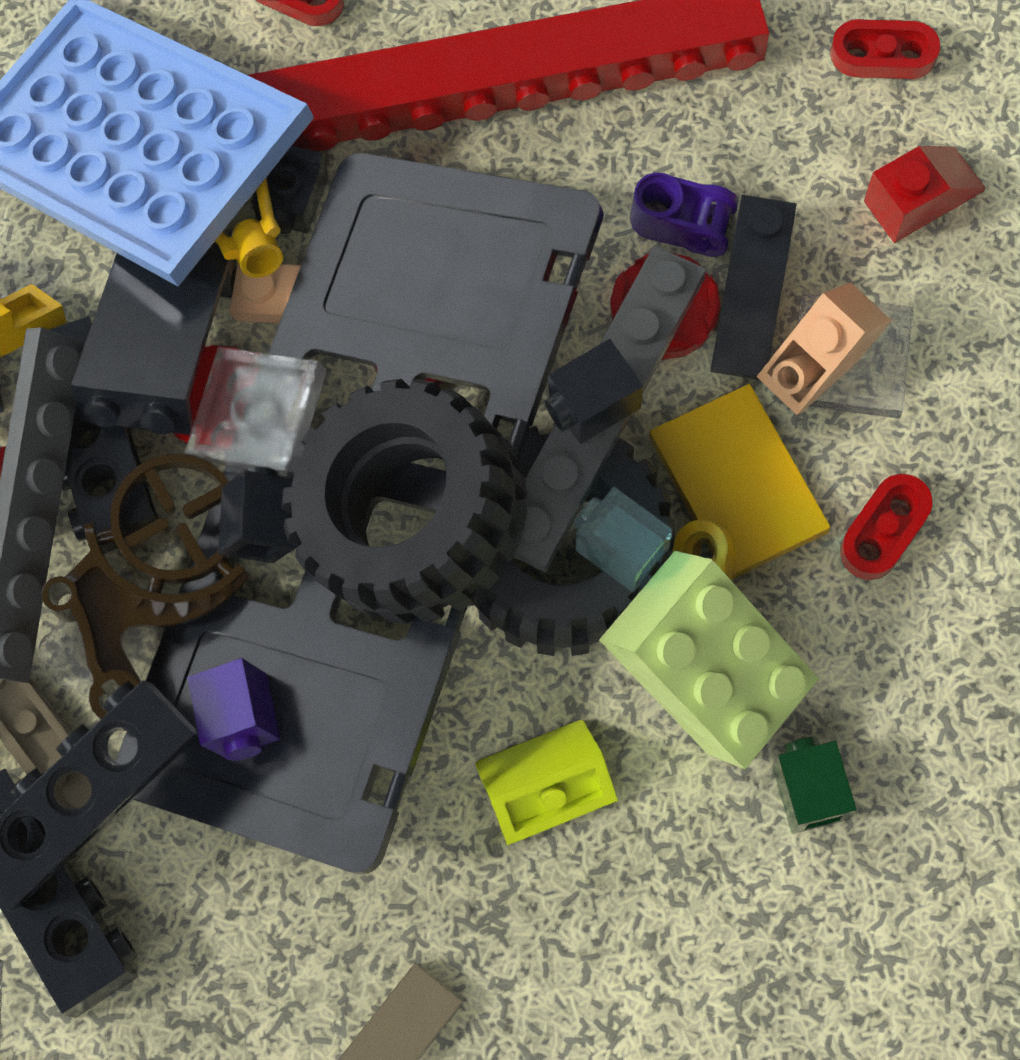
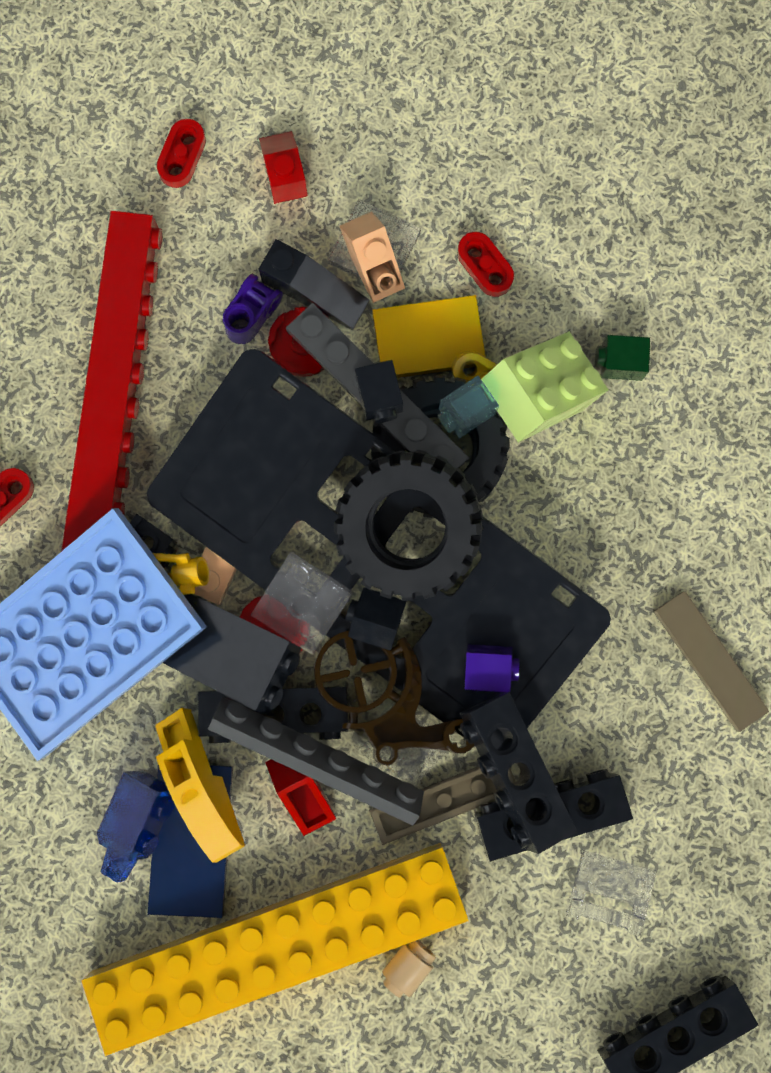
camera: 80 degrees left, 10 degrees up
(546, 781) = (572, 504): neon yellow panel -> none

